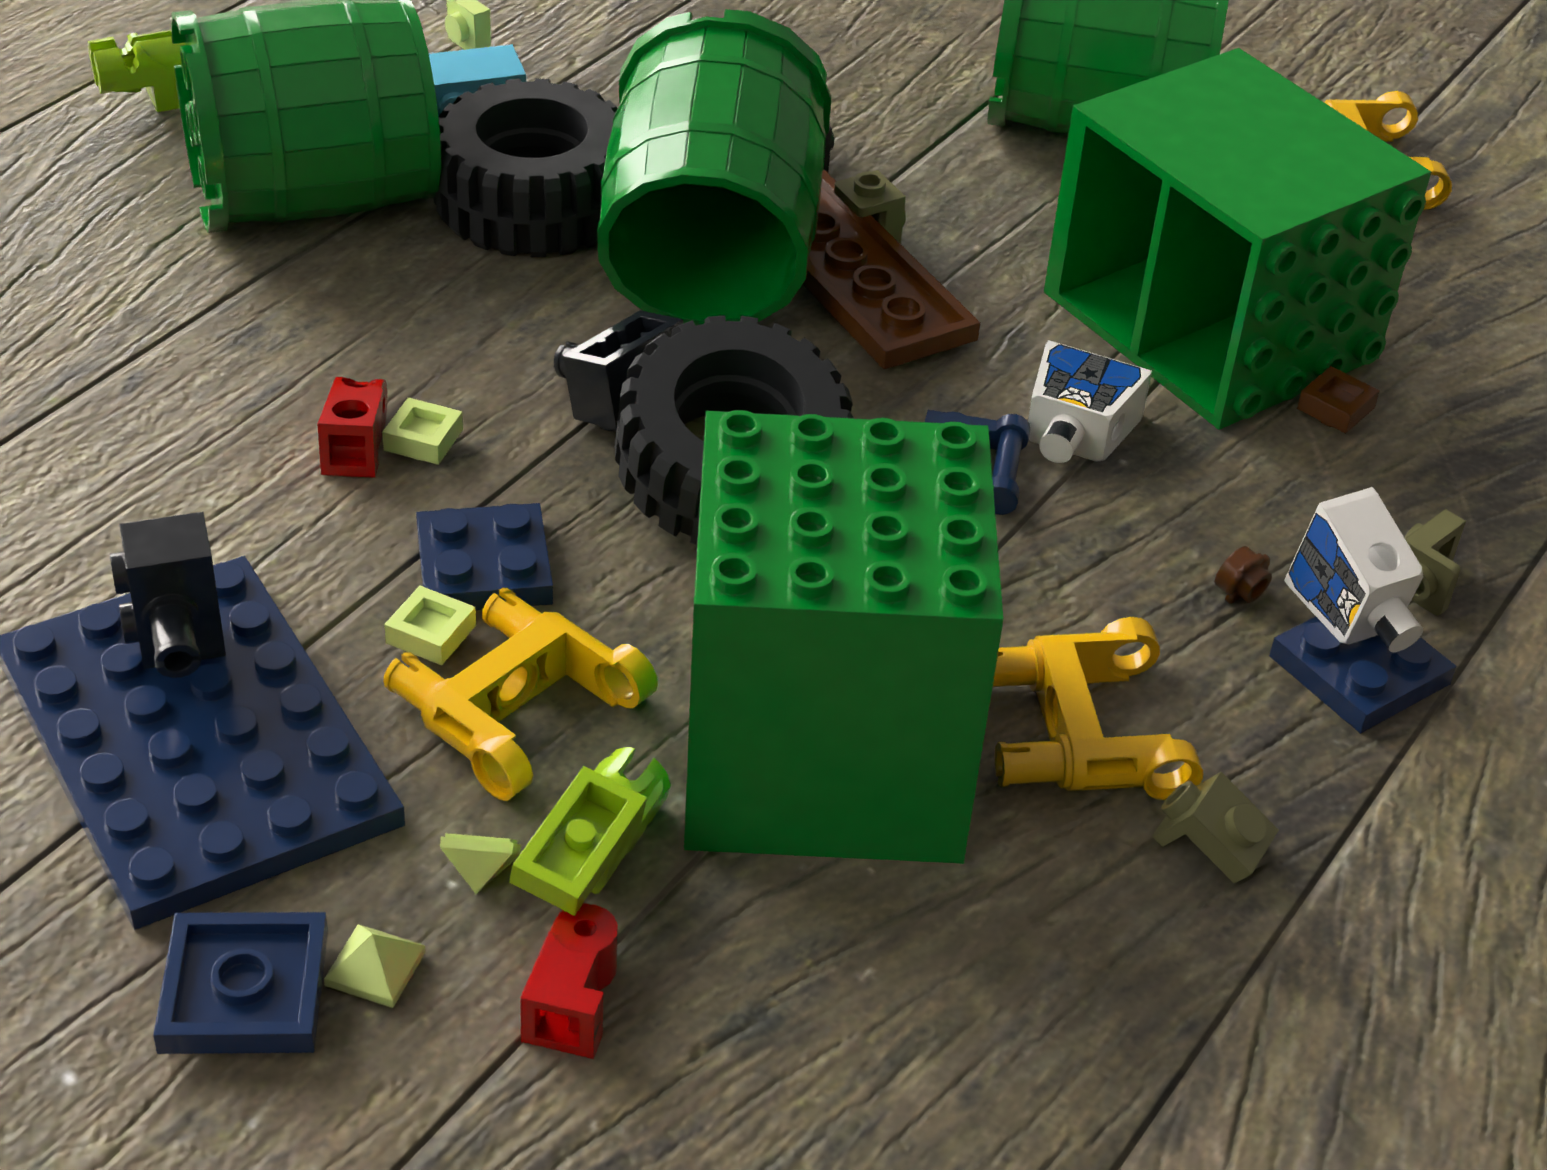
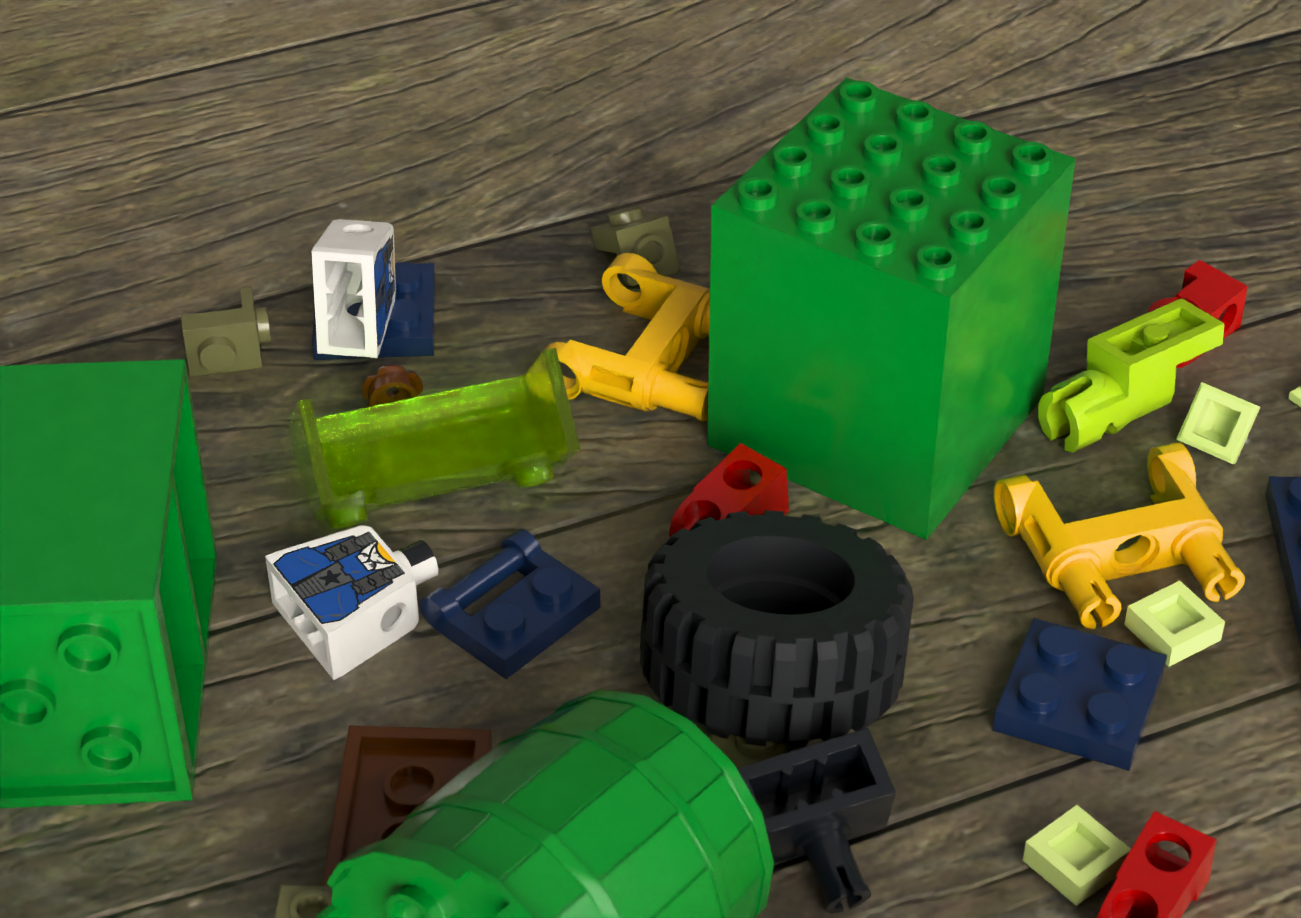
camera: 145 degrees left, 0 degrees up
(1200, 507) = (435, 443): none -> clear neon green windscreen

